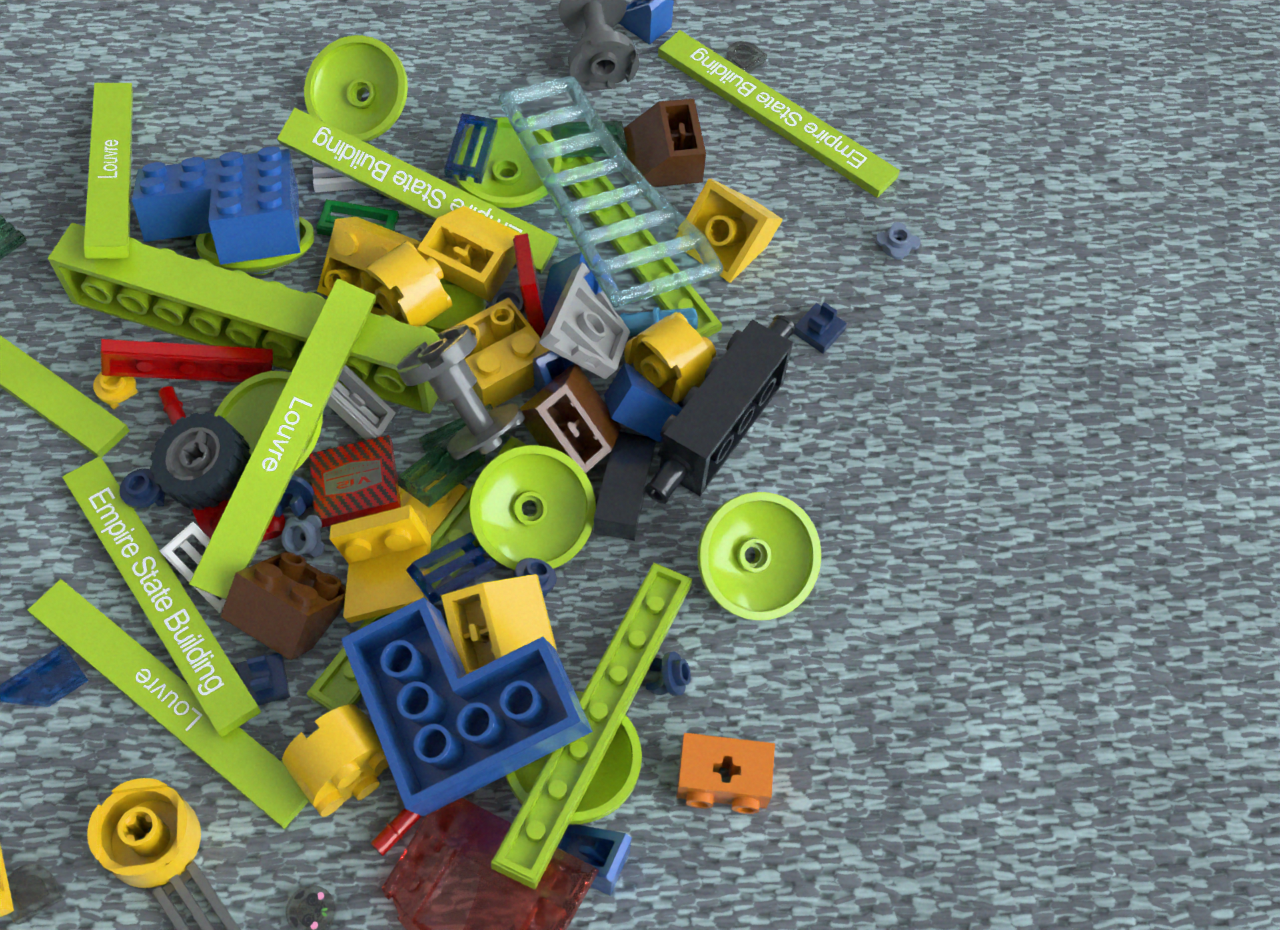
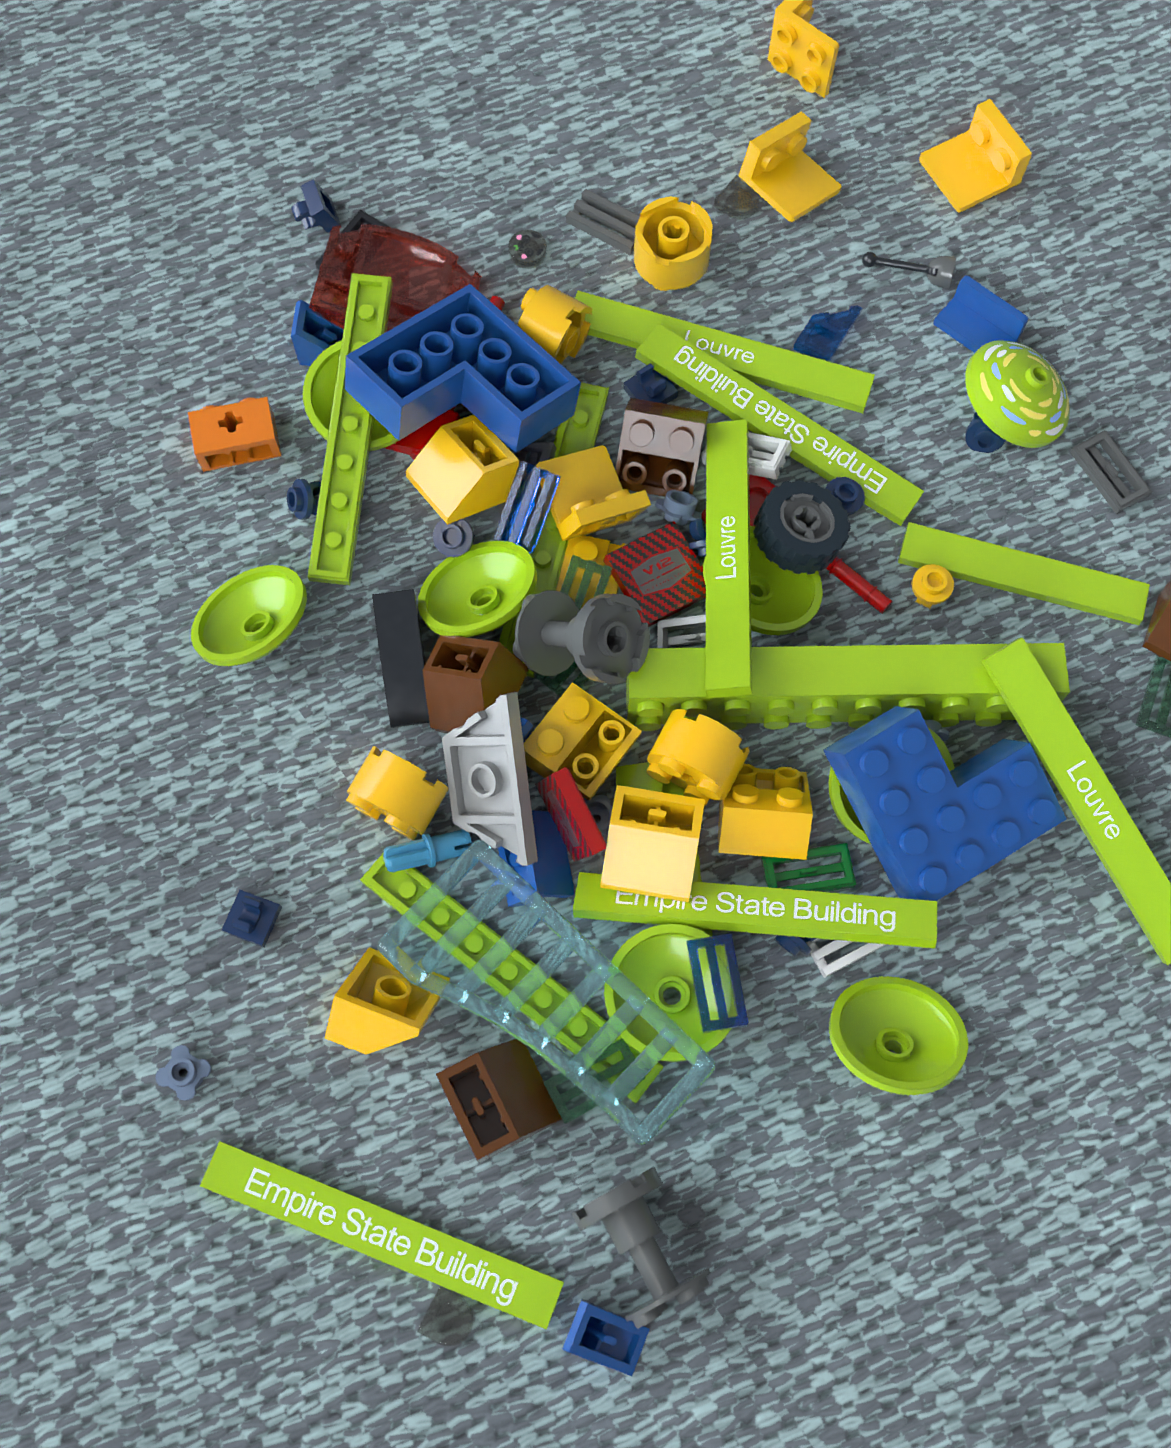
camera: 165 degrees right, 10 degrees up
(183, 361) = (885, 610): red tile -> none
(639, 403) = (416, 739): blue slope -> none
(722, 408) = (322, 756): black brick -> none

